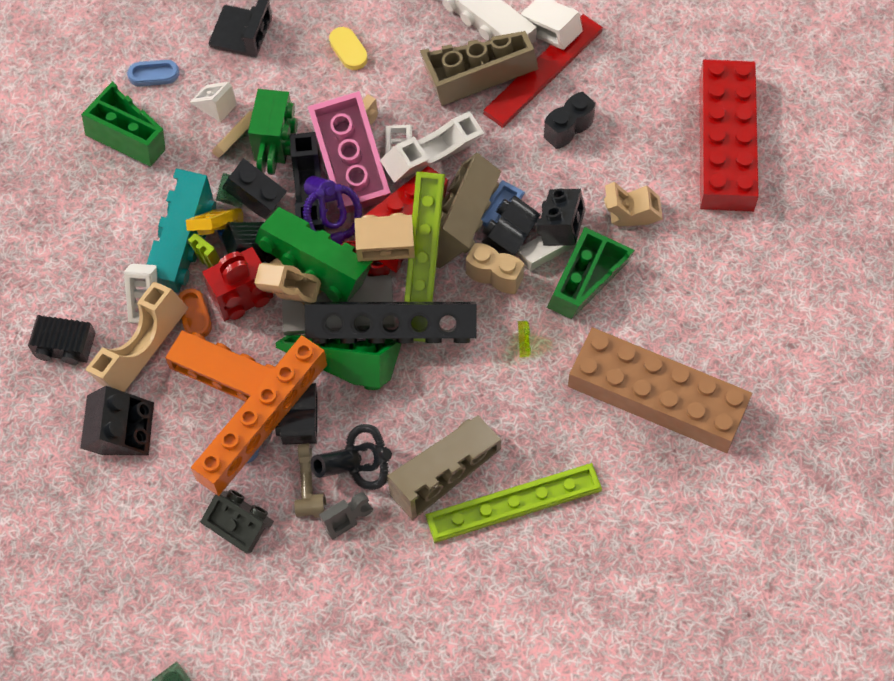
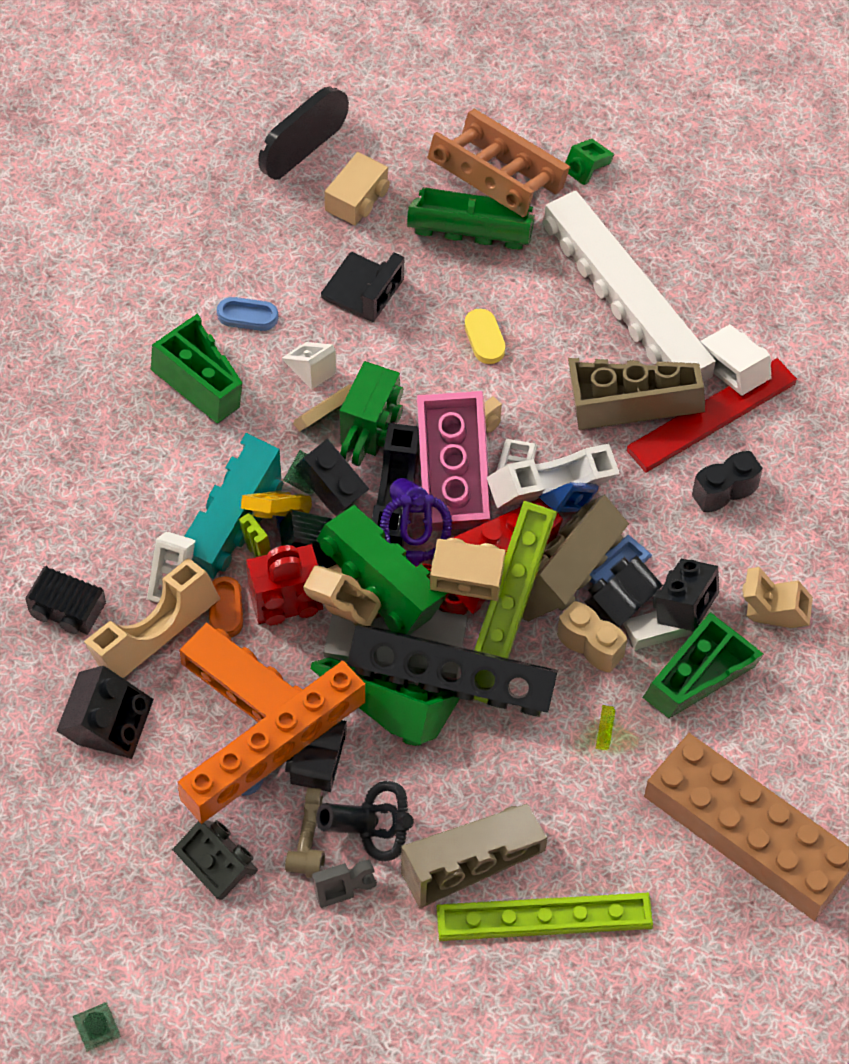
camera: 10 degrees right, 5 degrees down
(449, 160) = (569, 496): none -> blue slope

